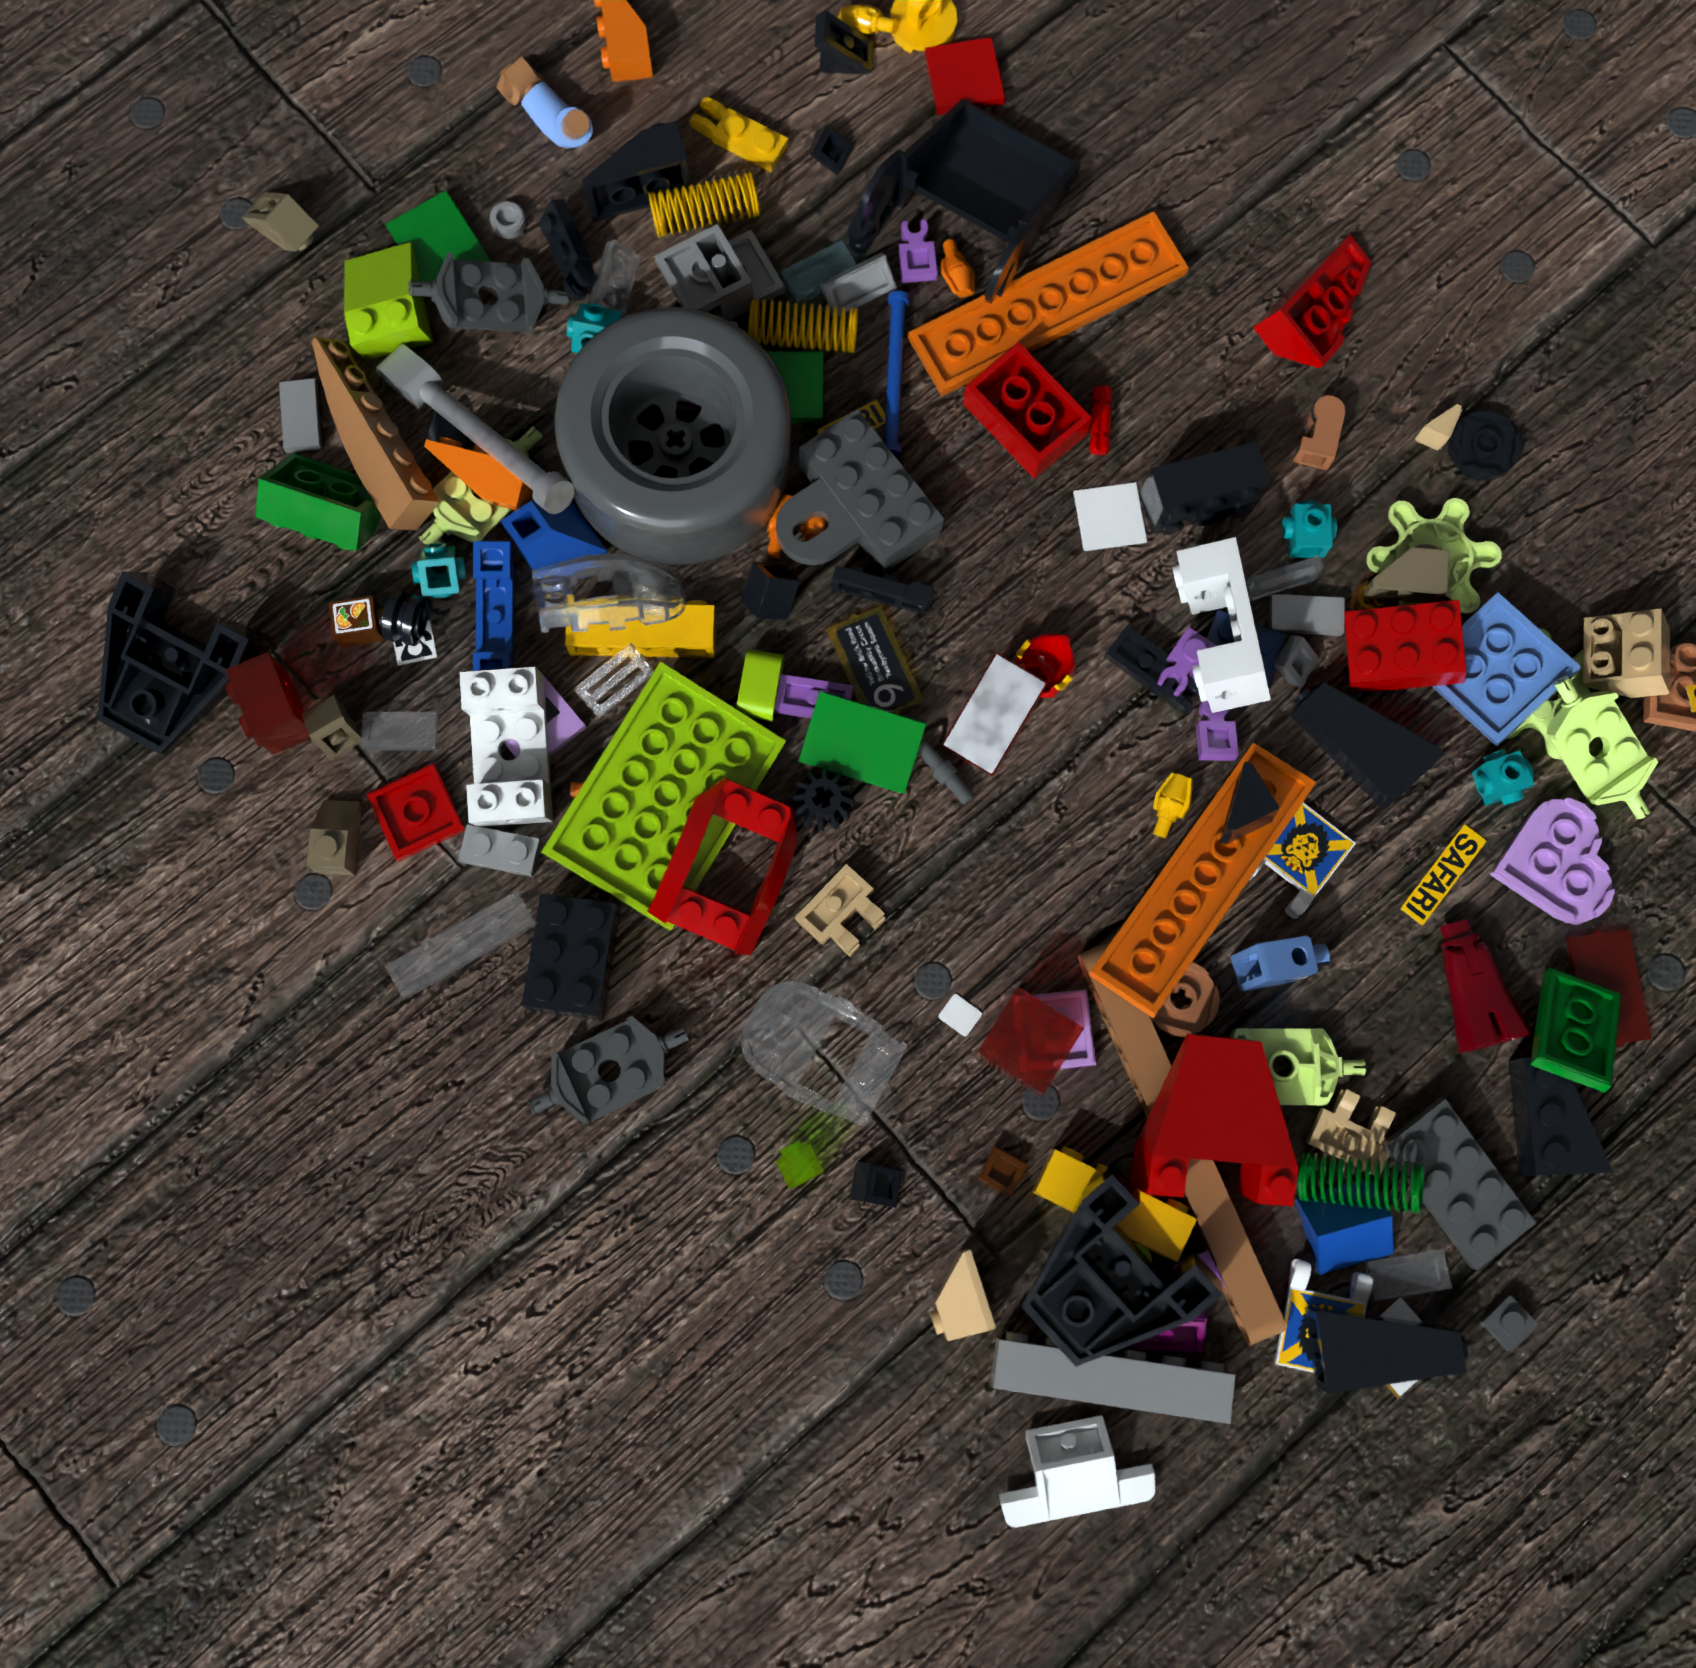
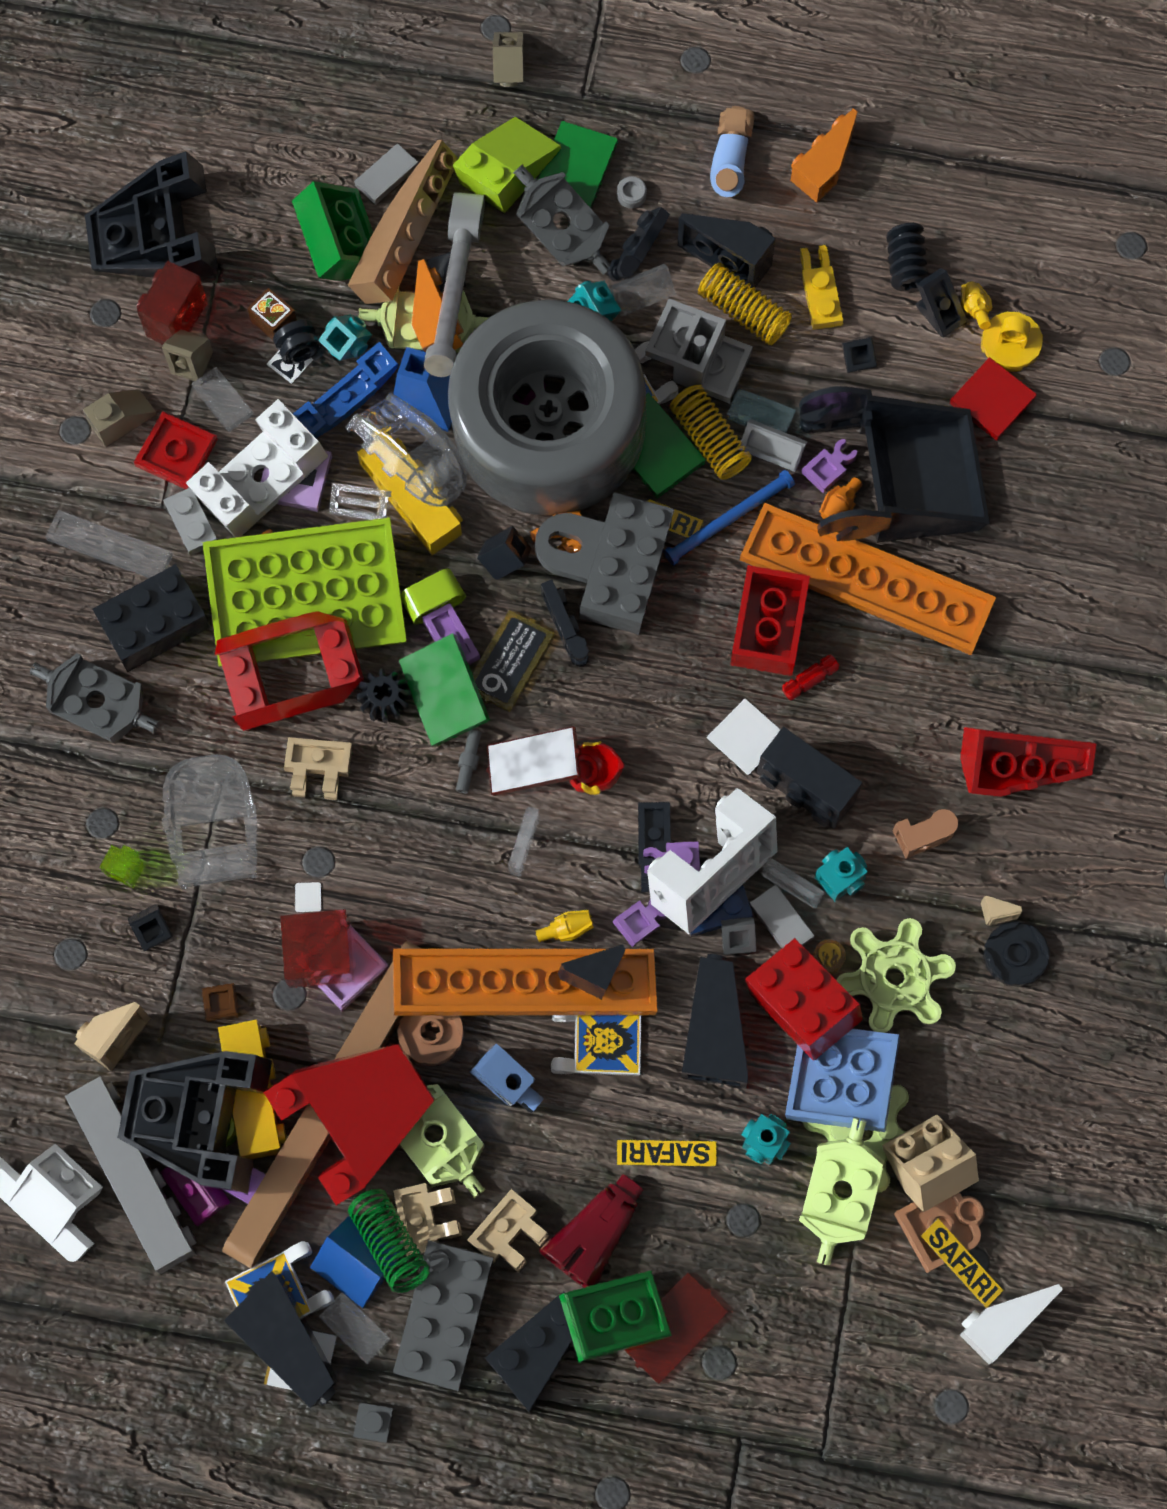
camera: 55 degrees right, 5 degrees down
(774, 41) = (906, 256): none -> black piece
(1064, 780) = (523, 841): none -> clear tile
(1413, 1069) = (503, 1226): none -> tan plate
(1414, 577) = (861, 966): dark tan slope -> none
(1557, 862) = (735, 1223): lavender plate -> none

